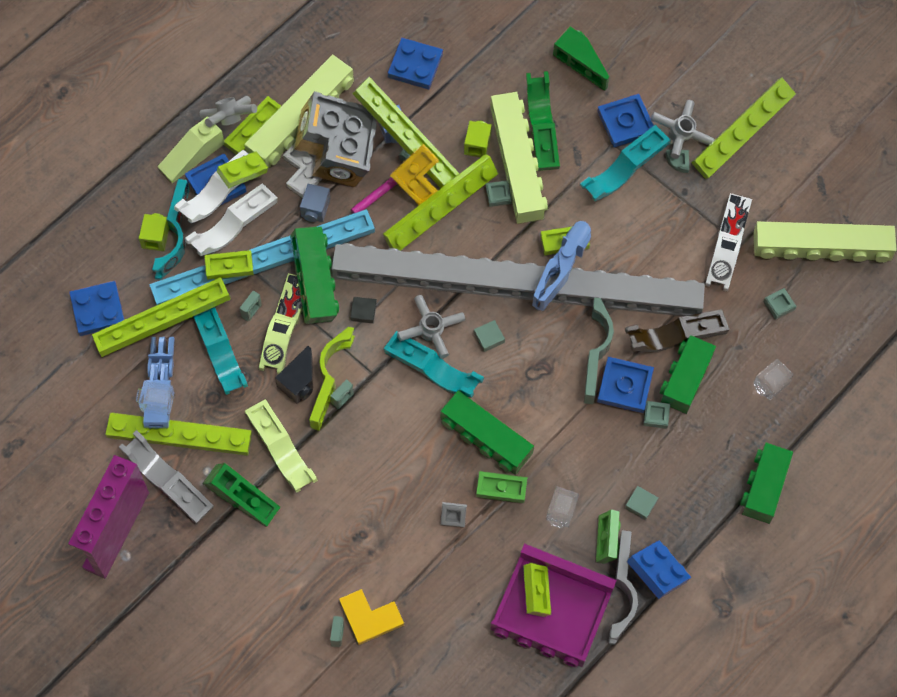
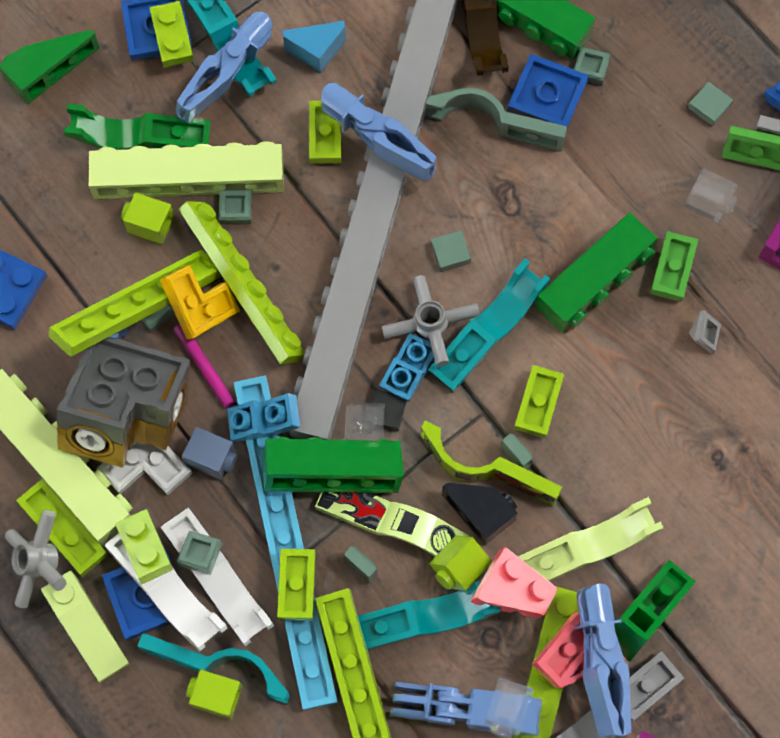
camera: 80 degrees left, 5 degrees up
(202, 444) = (563, 656): none -> coral wing
(225, 448) = (604, 666): none -> medium blue arm
(241, 398) = (514, 586): none -> wing
(244, 205) = (199, 552): none -> sand green tile
(256, 365) = (460, 563): none -> lime brick
(341, 227) = (263, 418): none -> dark azure slope
(346, 289) = (364, 421): none -> clear brick
(383, 406) = (539, 401): none -> lime plate
(393, 318) = (408, 367): none -> dark azure slope
(597, 163) = (226, 63): none -> medium blue arm
(618, 128) = (171, 34): none -> lime plate
(632, 225) = (315, 44): none -> dark azure slope

